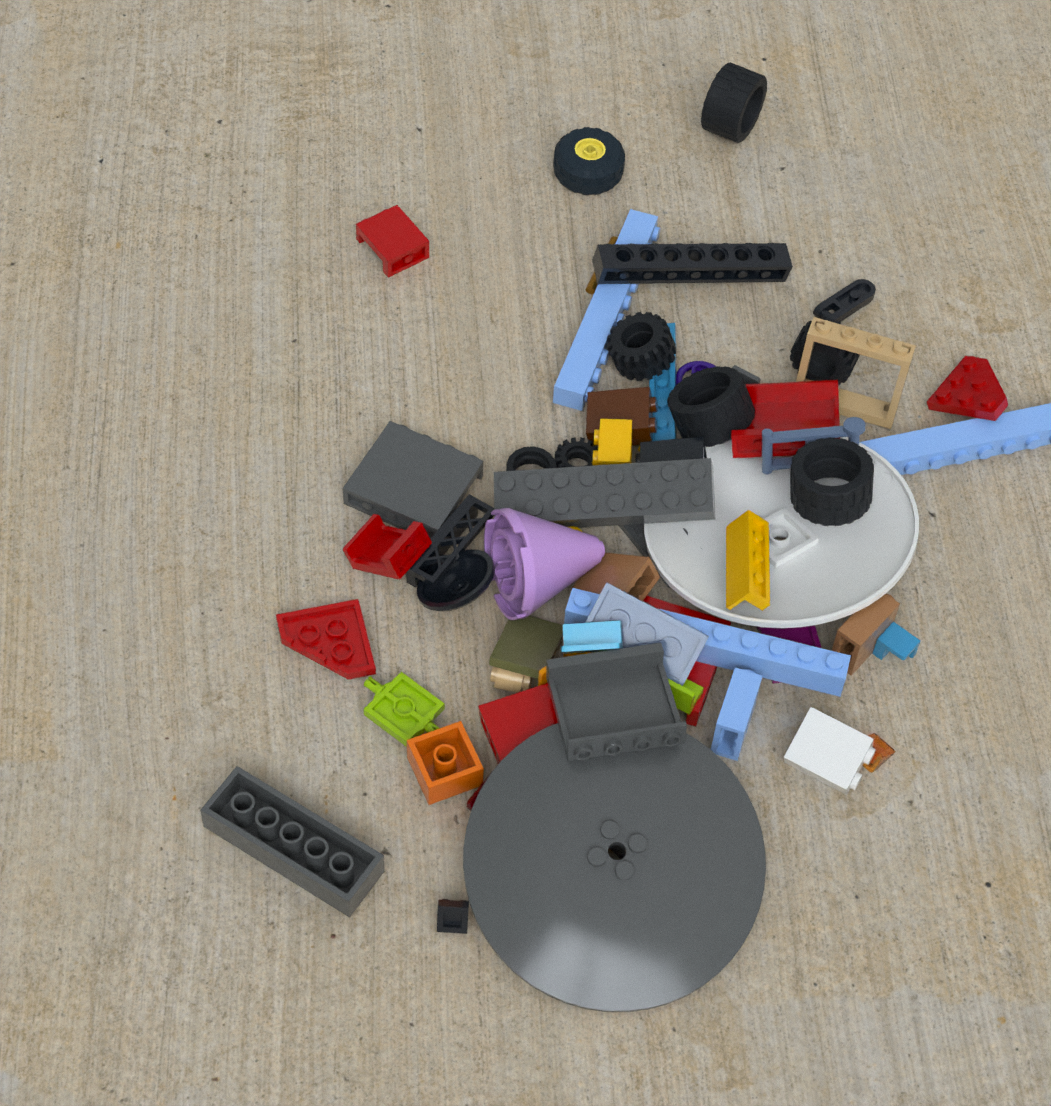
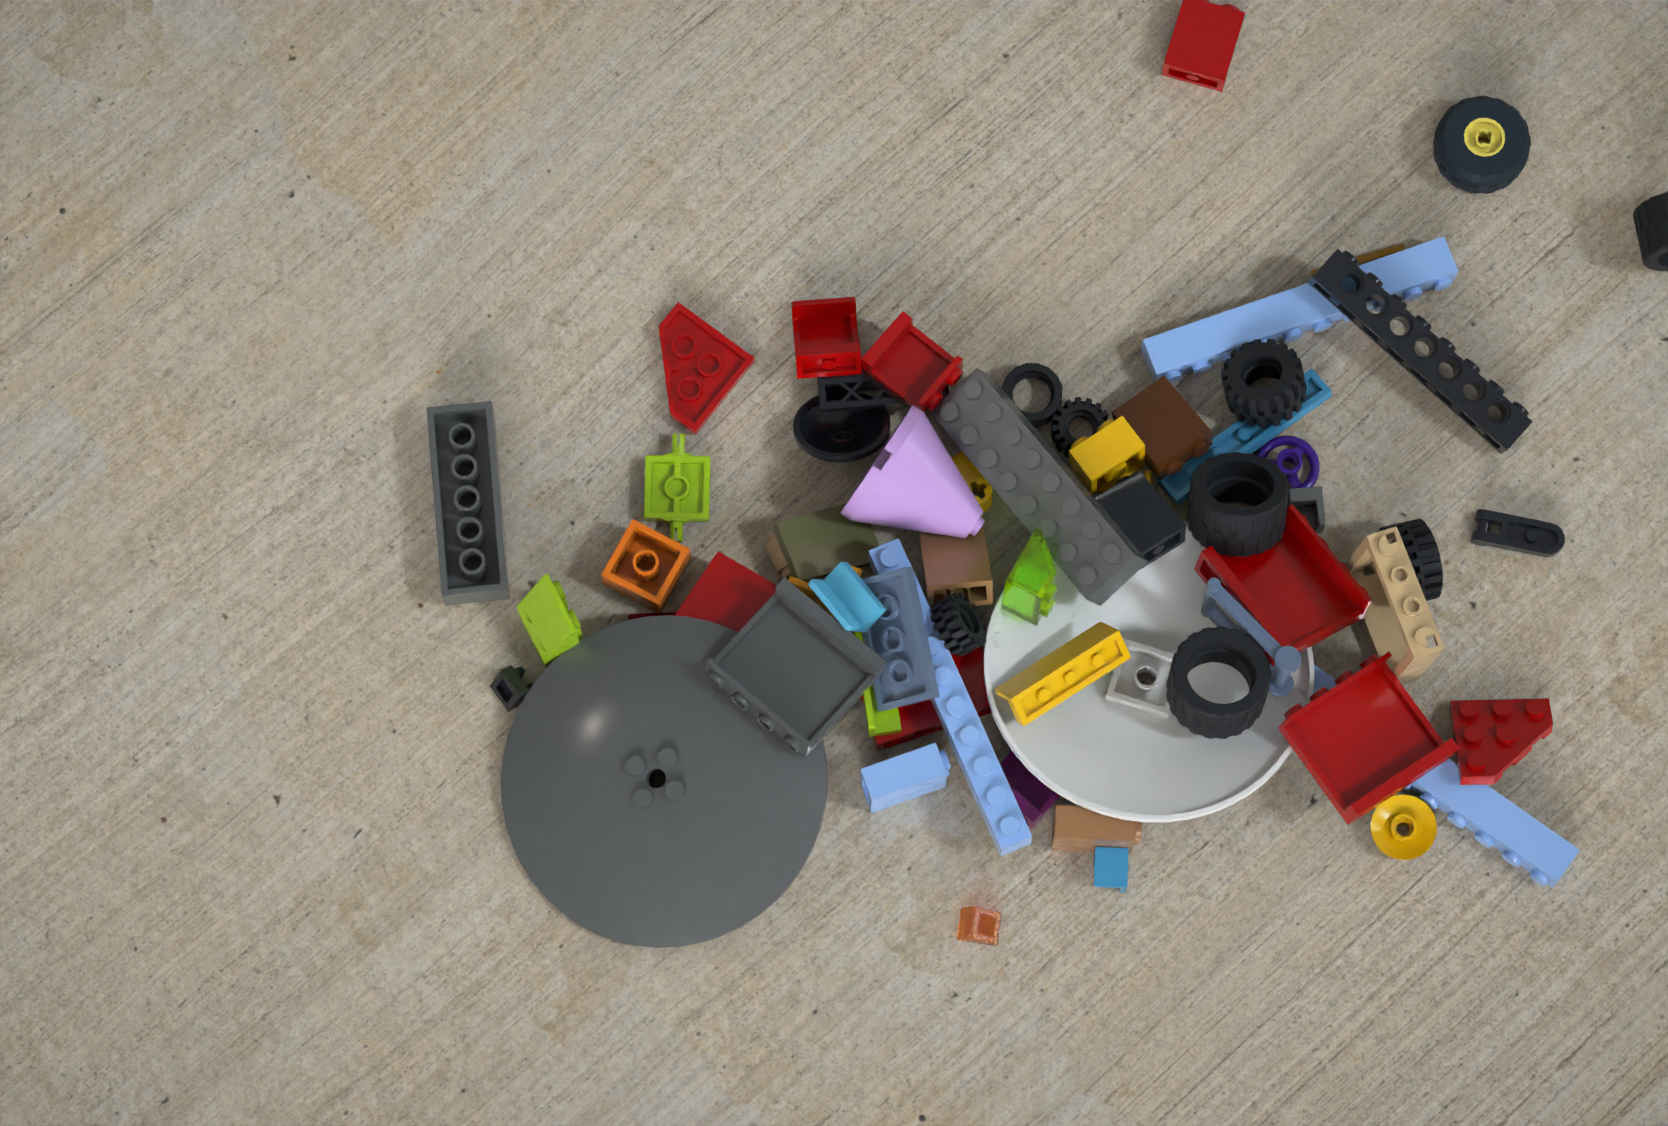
camera: 55 degrees right, 20 degrees up
(411, 479) = (933, 282): dark grey panel -> none
(433, 845) = (549, 620): none -> lime slope
(455, 509) = (911, 364): none -> red panel
(663, 597) = (958, 624): none -> black tyre
(671, 533) = (1031, 582): none -> clear neon green slope
(830, 751) = (935, 887): white brick -> none
(930, 443) = (1364, 738): none -> red panel
(997, 468) = (1409, 812): none -> yellow dish

